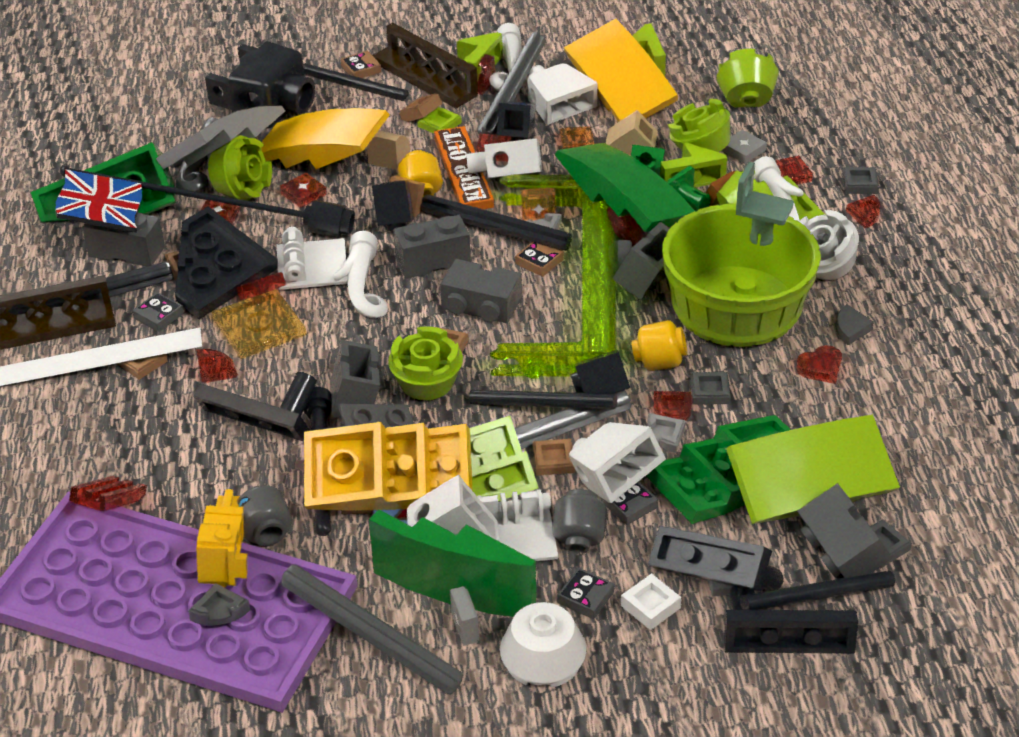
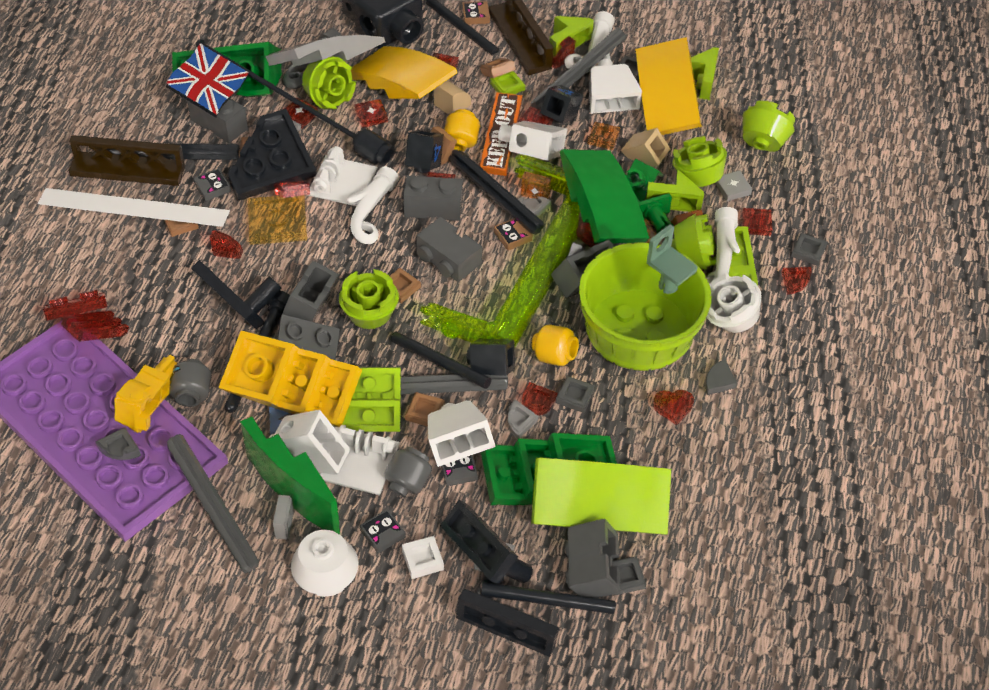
camera: 20 degrees right, 10 degrees up
(55, 485) = (88, 301): none -> clear red plate

